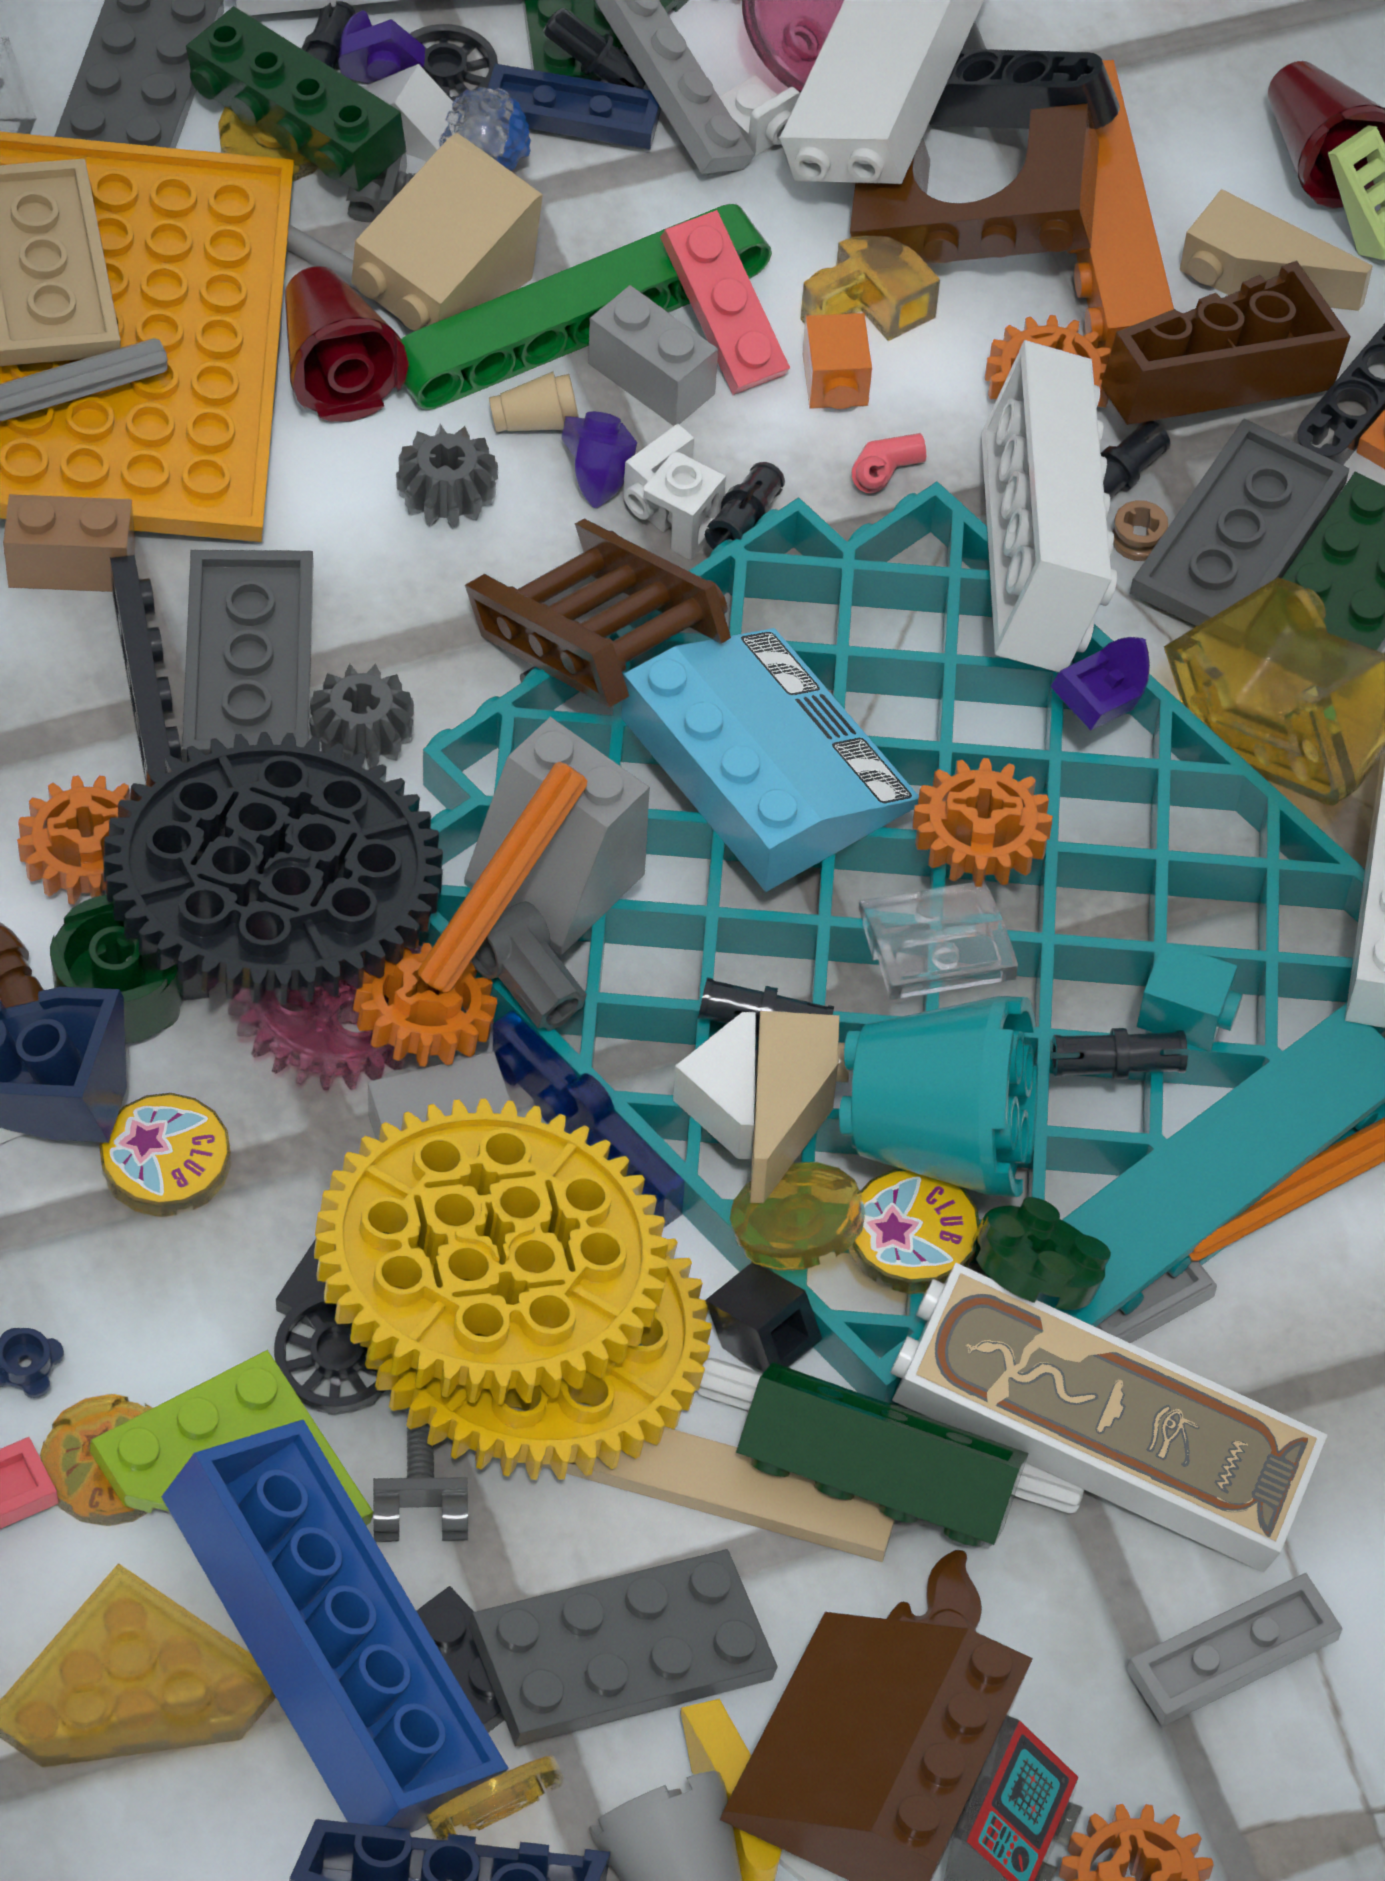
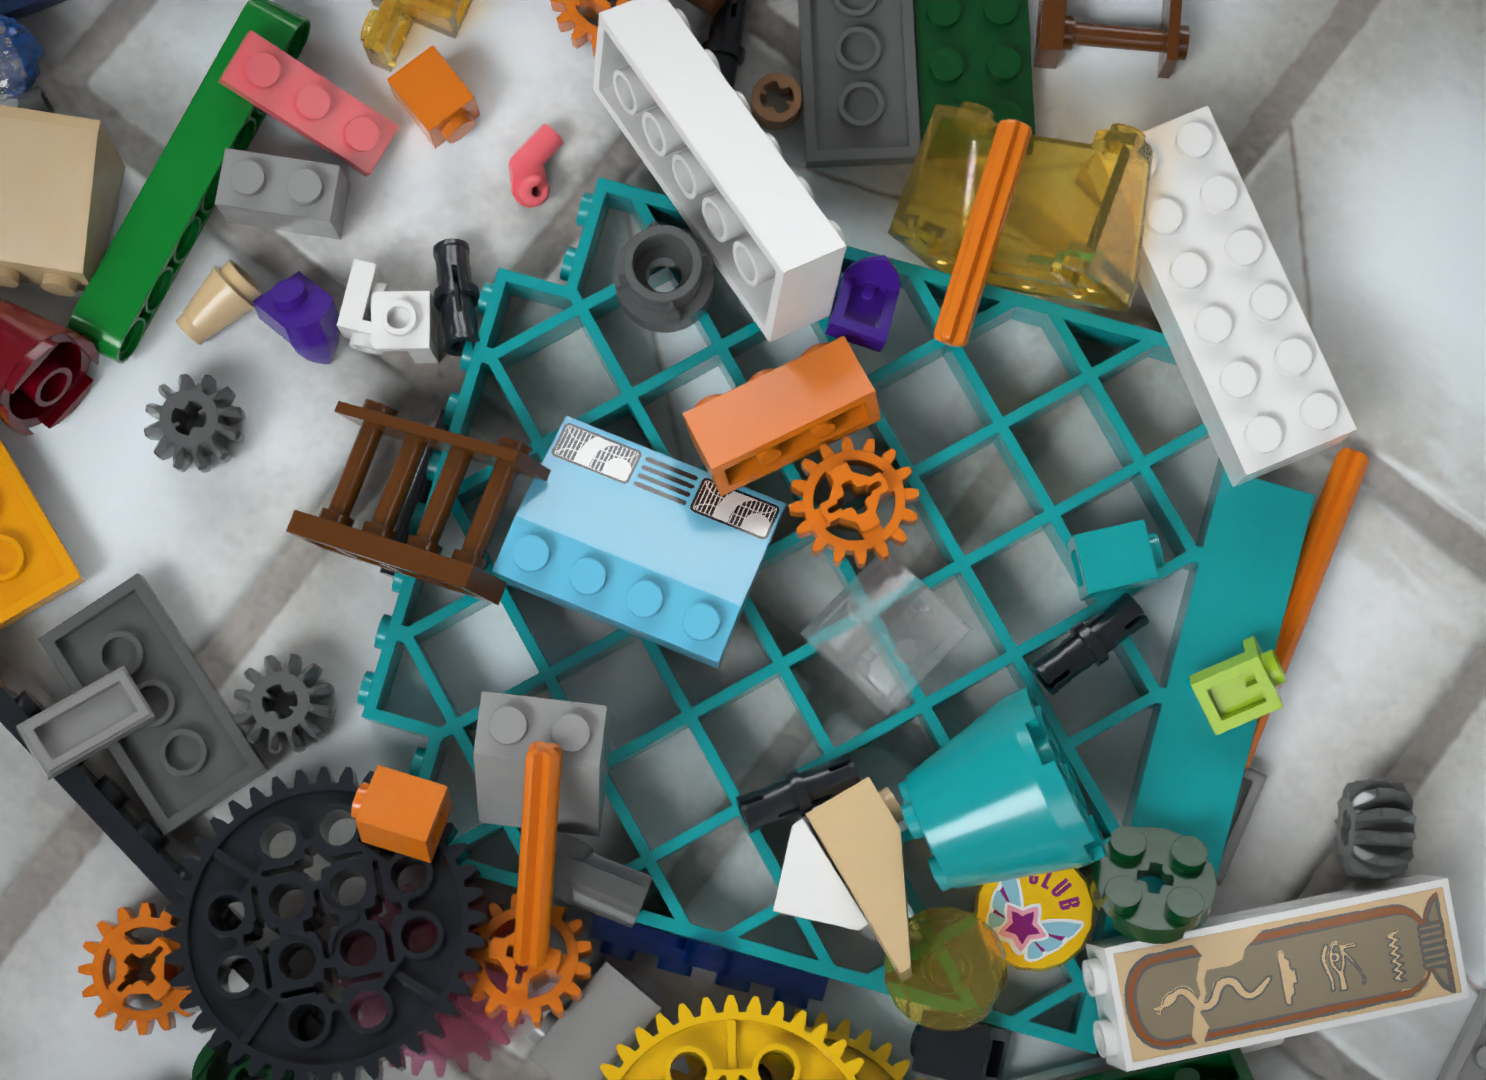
camera: 30 degrees left, 25 degrees up
(185, 619) = (85, 723): none -> light grey tile
(409, 803) = (402, 813): none -> orange brick
(938, 567) = (658, 248): none -> dark grey piece
(965, 717) = (782, 415): none -> orange brick
(1236, 1160) = (1240, 687): none -> lime bracket
(1248, 686) = (982, 233): none -> orange axle
(1289, 1365) = (1375, 829): none -> dark grey gear

